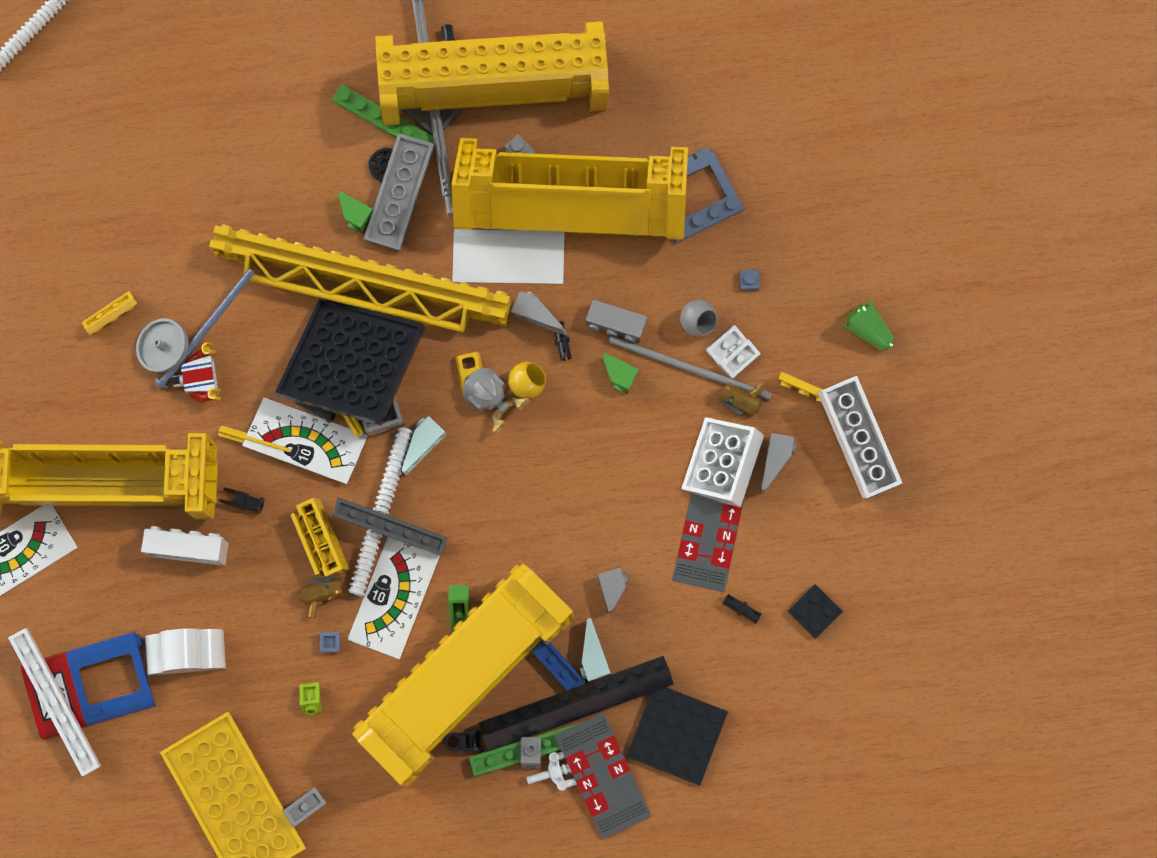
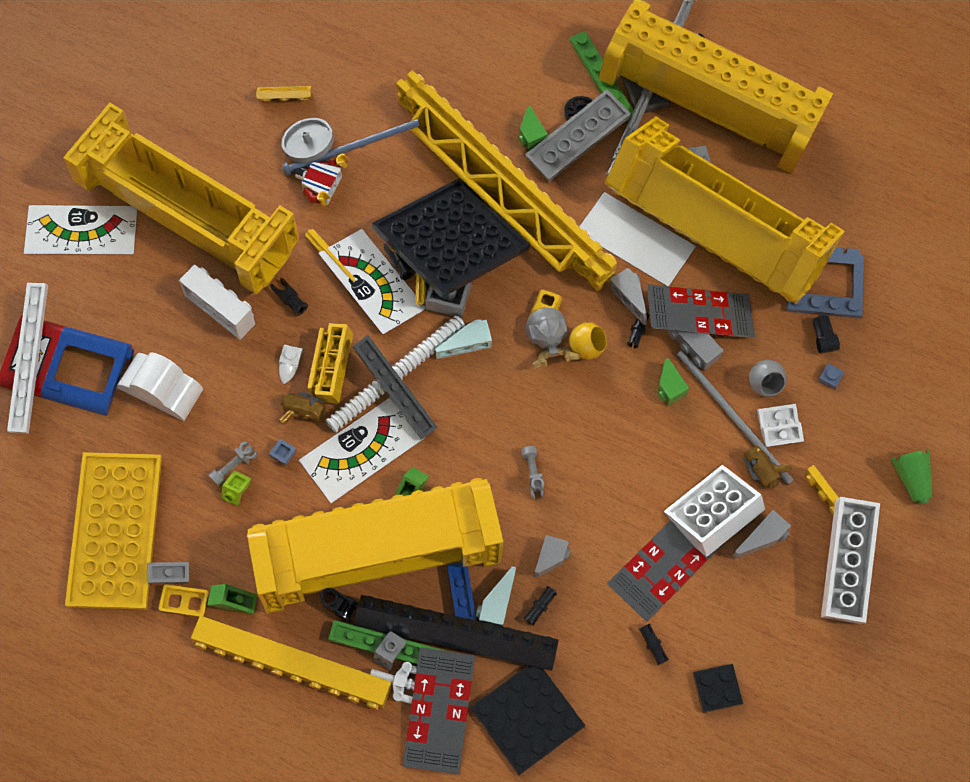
camera: 25 degrees right, 10 degrees down
(282, 559) = (289, 362): none -> white plate
(298, 667) = (218, 476): none -> light grey bar
(330, 814) = (186, 594): none -> yellow piece
(372, 794) = (232, 599): none -> bright green slope
(456, 814) = (291, 662): none -> yellow brick
(560, 532) = (536, 482): none -> light grey bar
(605, 292) = (700, 311): none -> dark grey sticker
(630, 635) = (540, 605): none -> black pin
(725, 249) = (826, 339): none -> black piece

